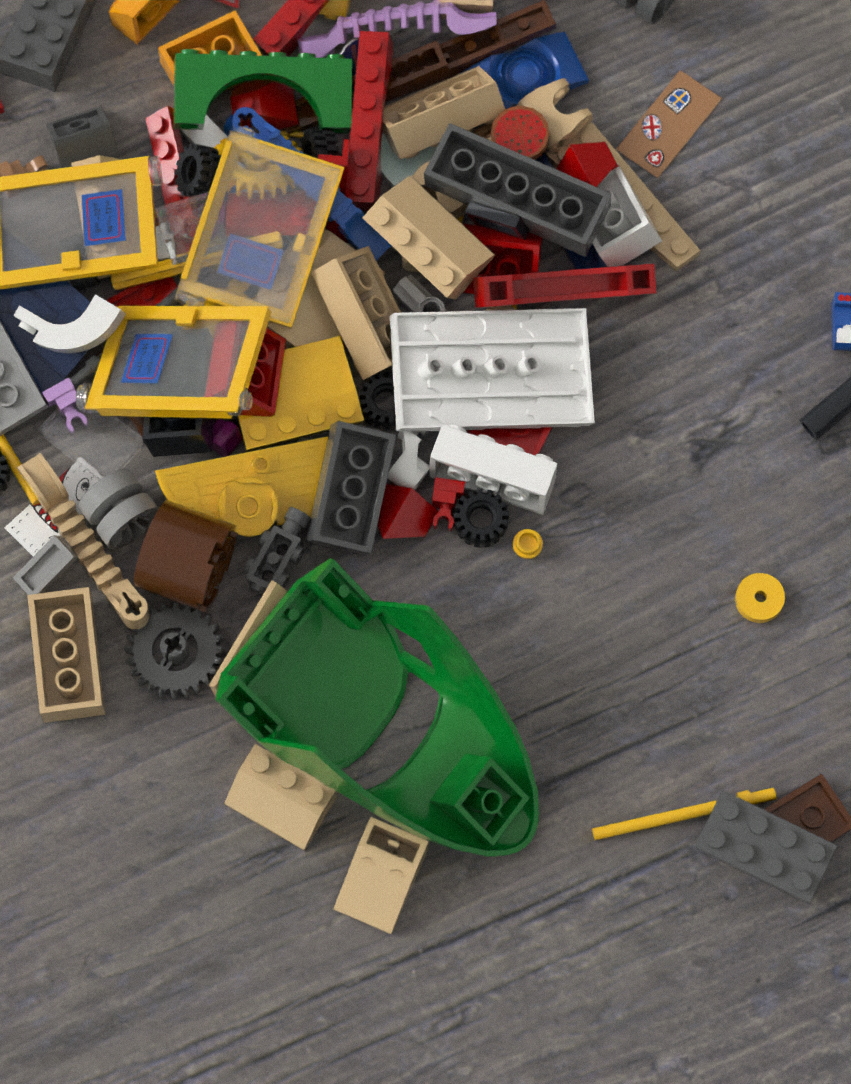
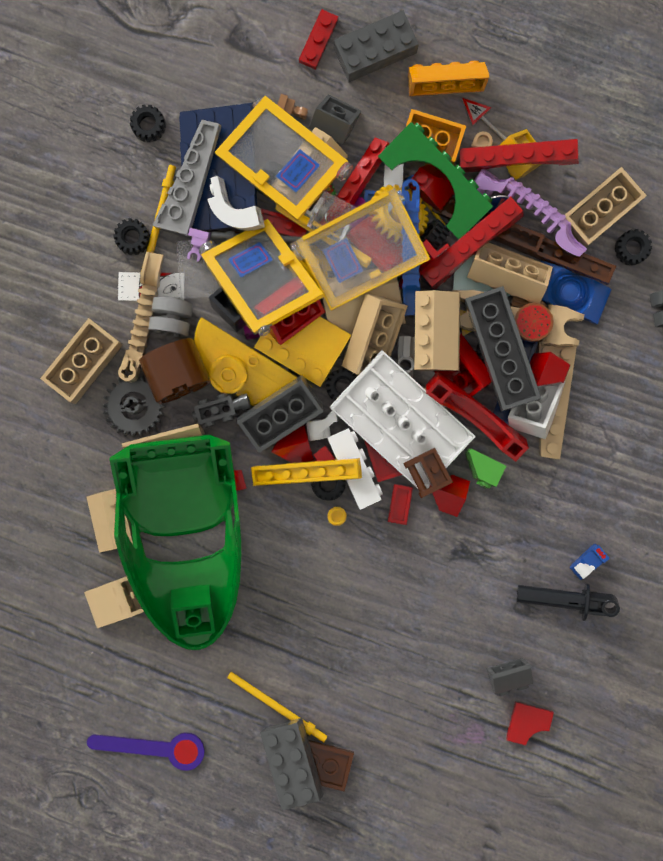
camera: 45 degrees right, 15 degrees up
(45, 566) = (114, 310): light grey tile -> none
(196, 169) = (366, 189): black tyre -> none
(264, 12) = (482, 139): none -> tan tile
(444, 520) = (307, 472): none -> yellow tile
(497, 220) = (478, 354): black tile -> none
(577, 382) = (434, 470): none -> reddish brown plate
(582, 464) = (400, 504): none -> red tile
(626, 399) = (453, 496): none -> red slope
(629, 332) = (484, 469): none -> bright green slope
(633, 971) = (184, 750): none -> dark purple piece
(668, 124) = (612, 382): medium nougat sticker -> none
(760, 611) = (421, 650): yellow piece -> none

